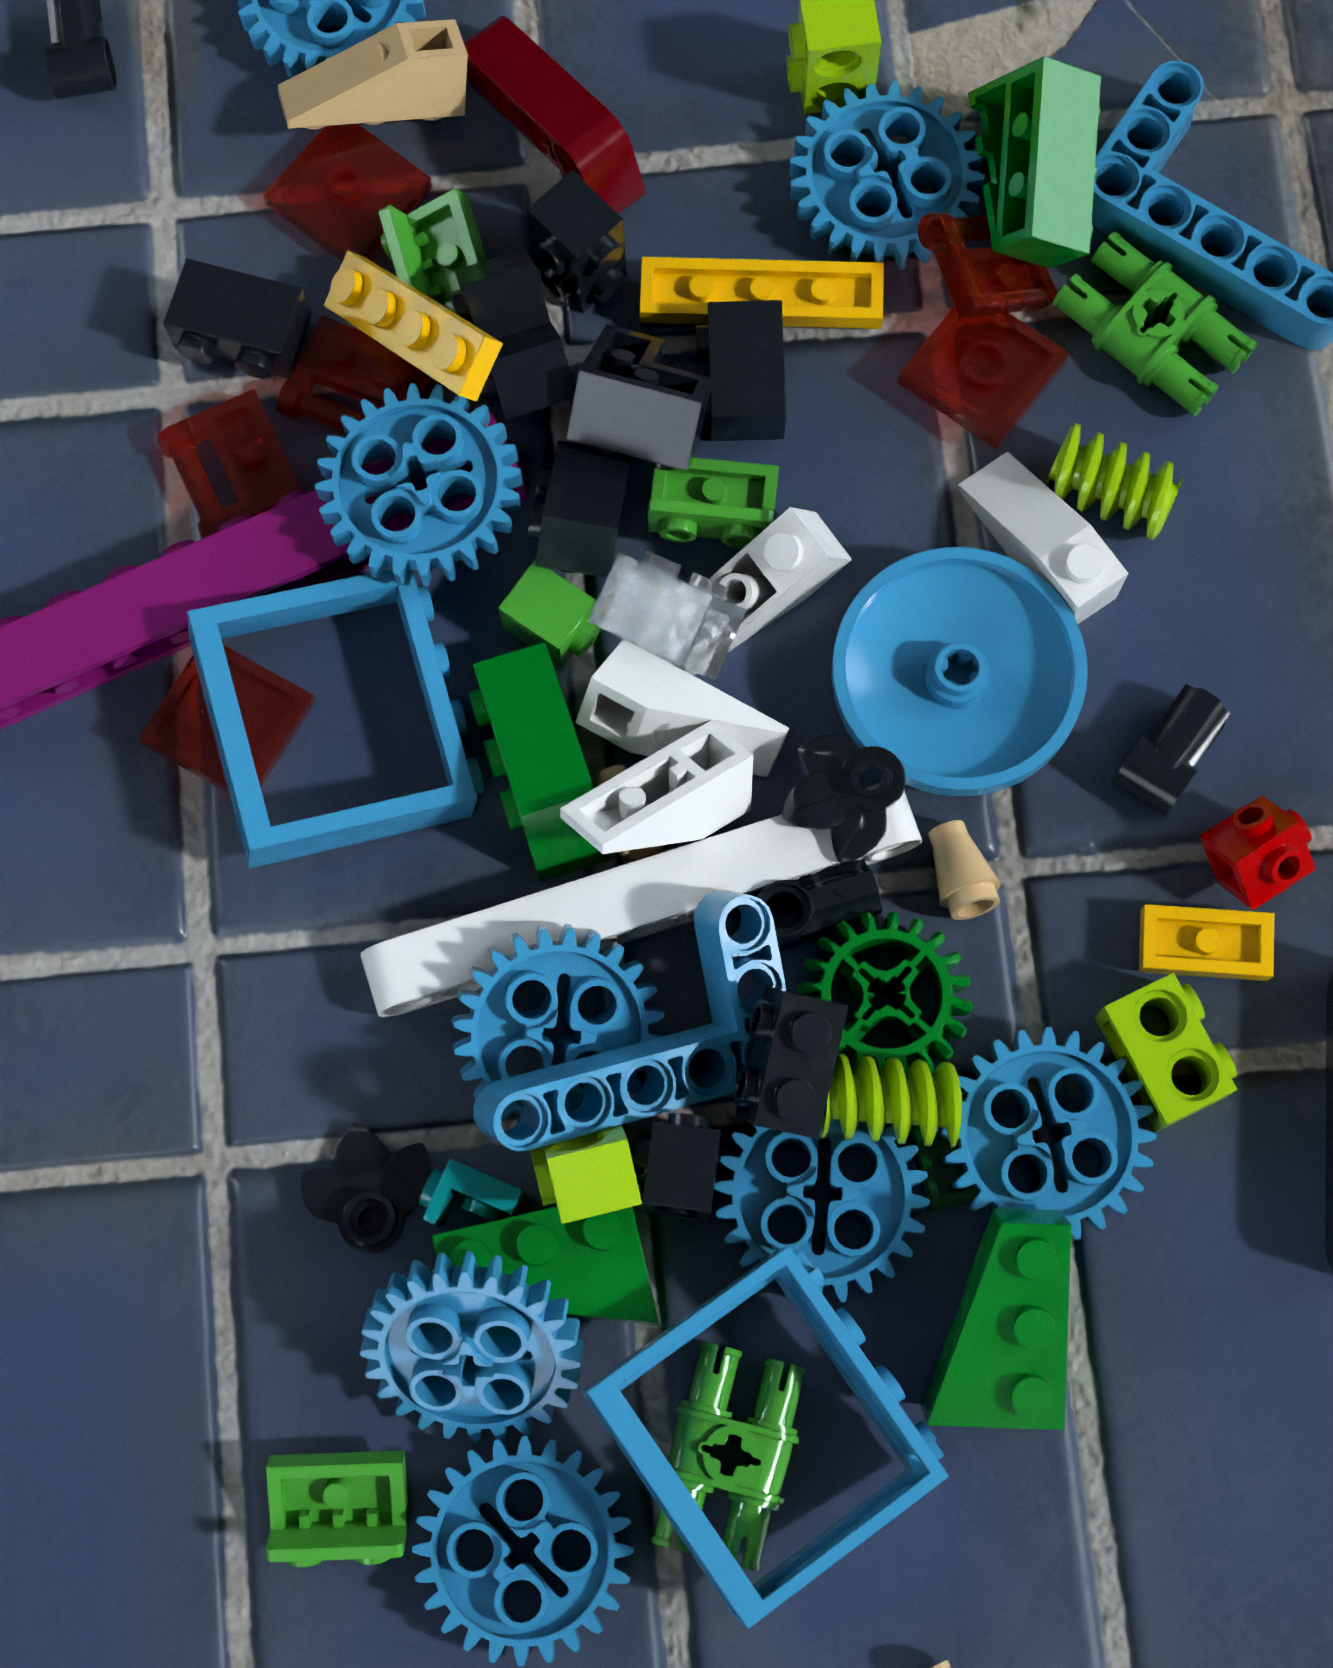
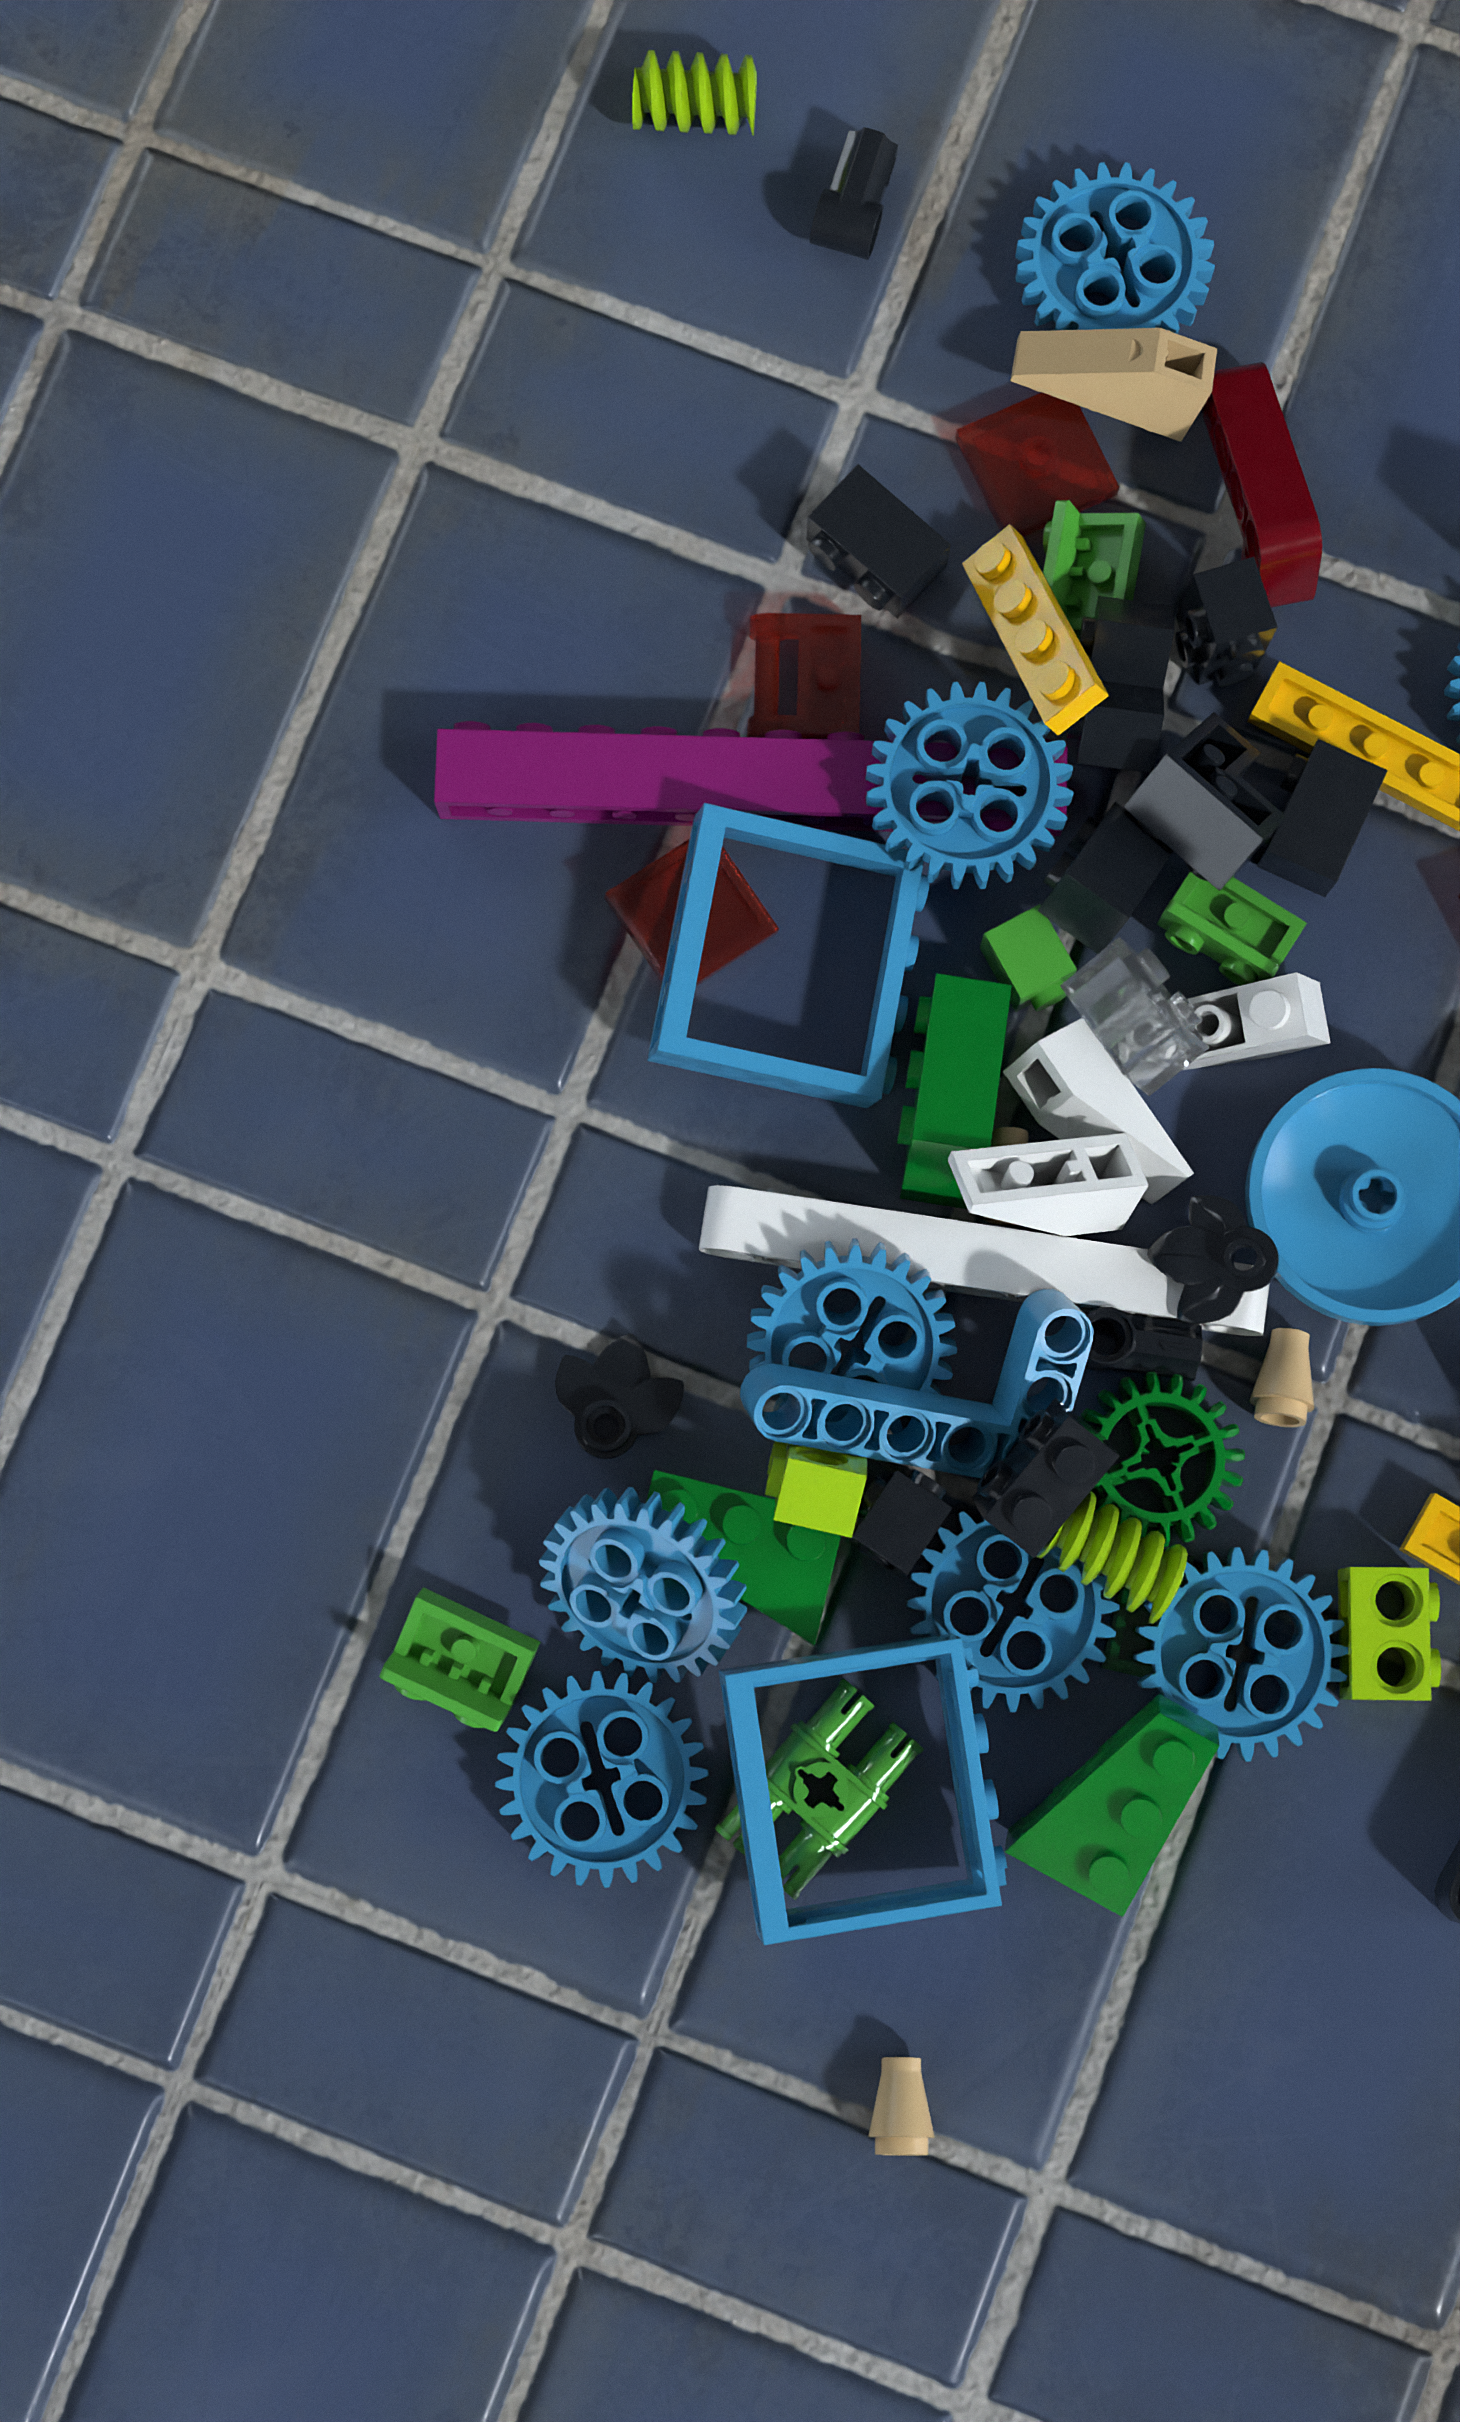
camera: 25 degrees right, 5 degrees up
(349, 364) = (960, 633): clear red plate -> none
(484, 1194) = (715, 1454): teal bracket -> none

